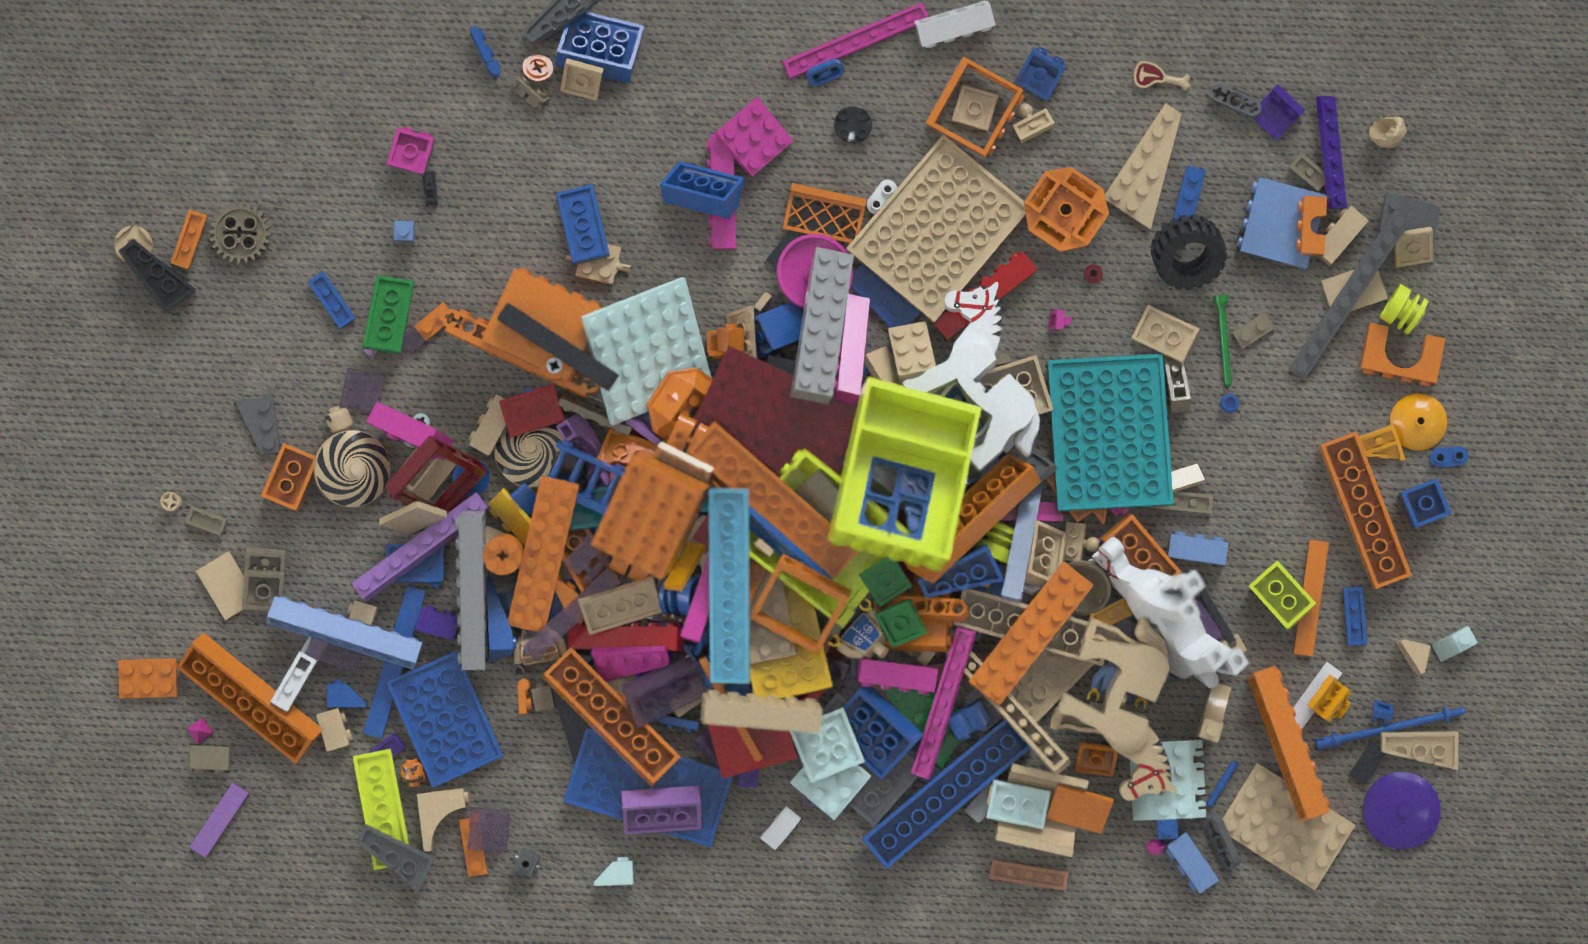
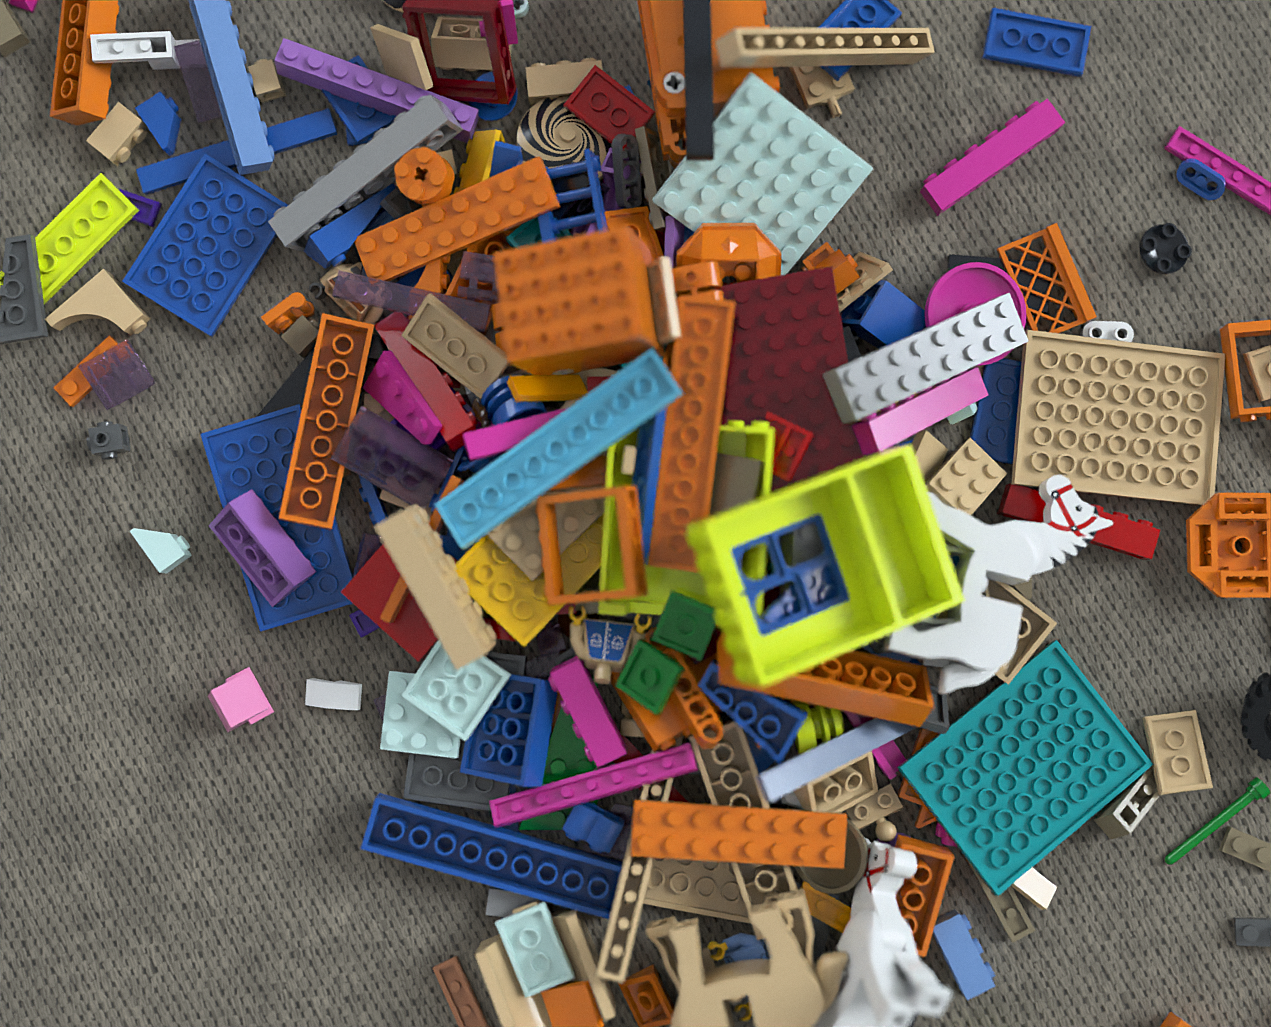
camera: 55 degrees right, 0 degrees up
(413, 772) = (125, 250): orange head -> none
(436, 623) = (305, 161): dark purple brick -> none
(569, 421) = (619, 164): none -> dark grey beam
(593, 256) = (823, 46): none -> tan brick
(668, 112) = (1036, 42): none -> blue tile
(702, 189) = (981, 129): blue slope -> none
(745, 888) = (240, 700): none -> bright pink plate
(753, 137) = (1077, 147): dark pink plate -> none
(763, 301) = (903, 281): tan tile -> none
(819, 445) = (789, 446): none -> red wing
(871, 321) = (962, 414): none -> light aqua tile
(1058, 321) = (1108, 621): dark pink tile -> none
(1090, 279) = (1179, 625): dark red plate -> none
(1229, 403) = (1149, 877): blue plate -> none

